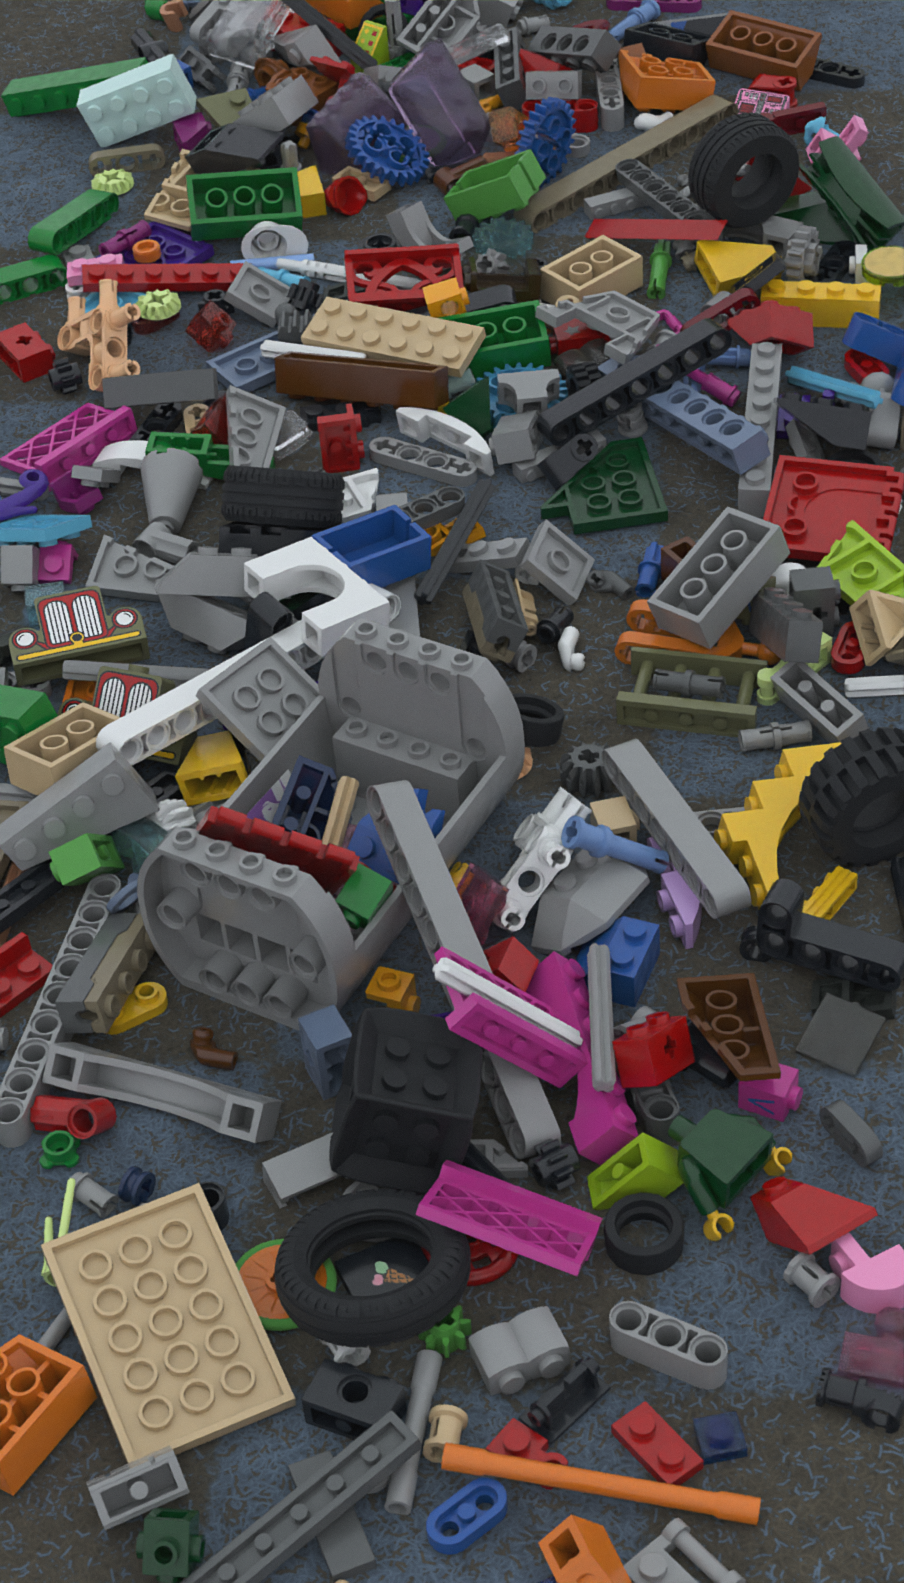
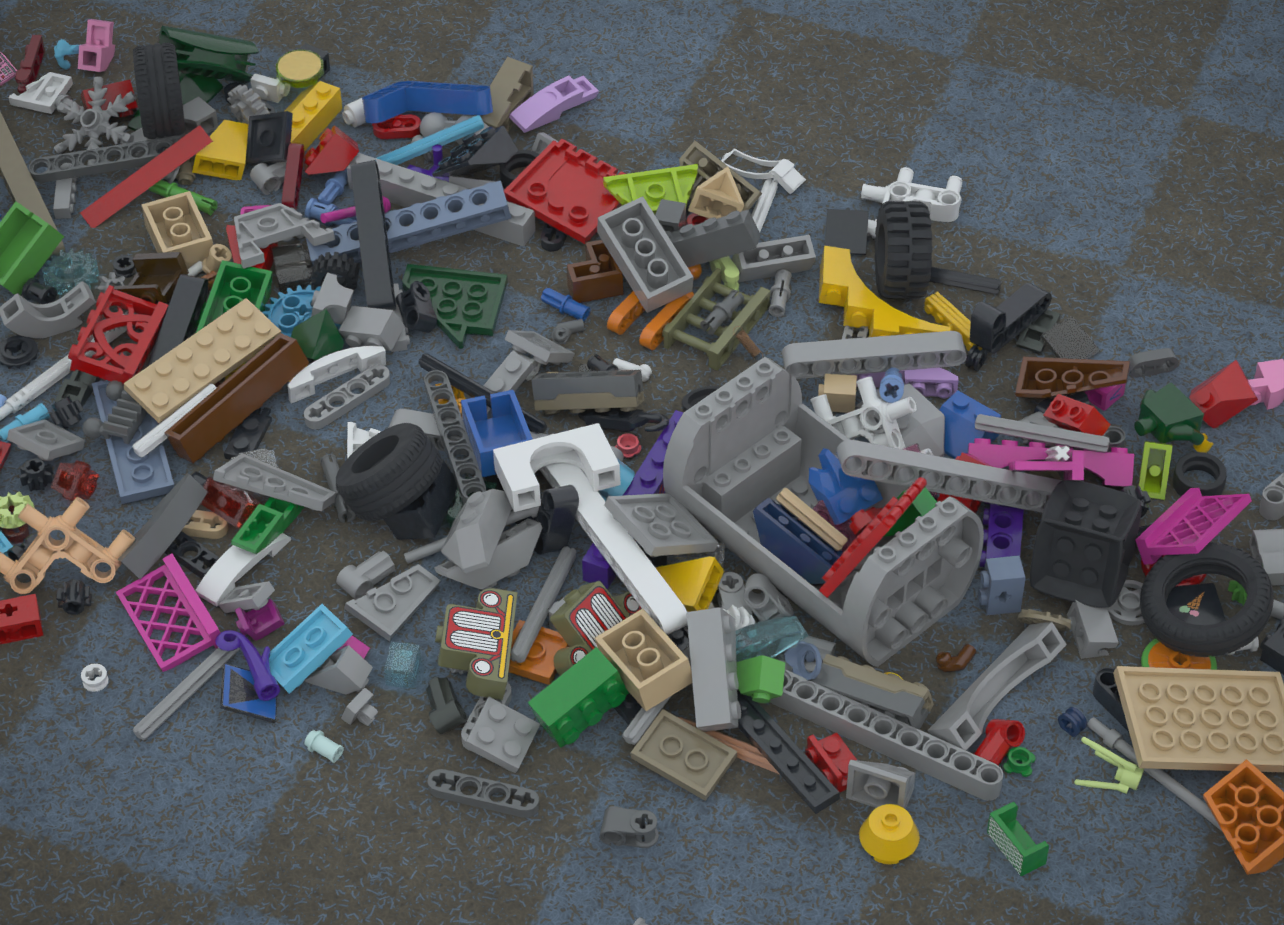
camera: 75 degrees left, 5 degrees up
(93, 1194) = (1063, 752): light grey pin -> none
(170, 486) = (304, 554): light grey cone -> none
(290, 1113) = (1033, 617): none -> dark tan wheel
(339, 441) = (310, 428): red bracket -> none
(438, 295) = (183, 314): light orange brick -> none
(661, 727) = (748, 343): none -> medium nougat piece
(811, 1279) = (1259, 413): light grey bush -> none

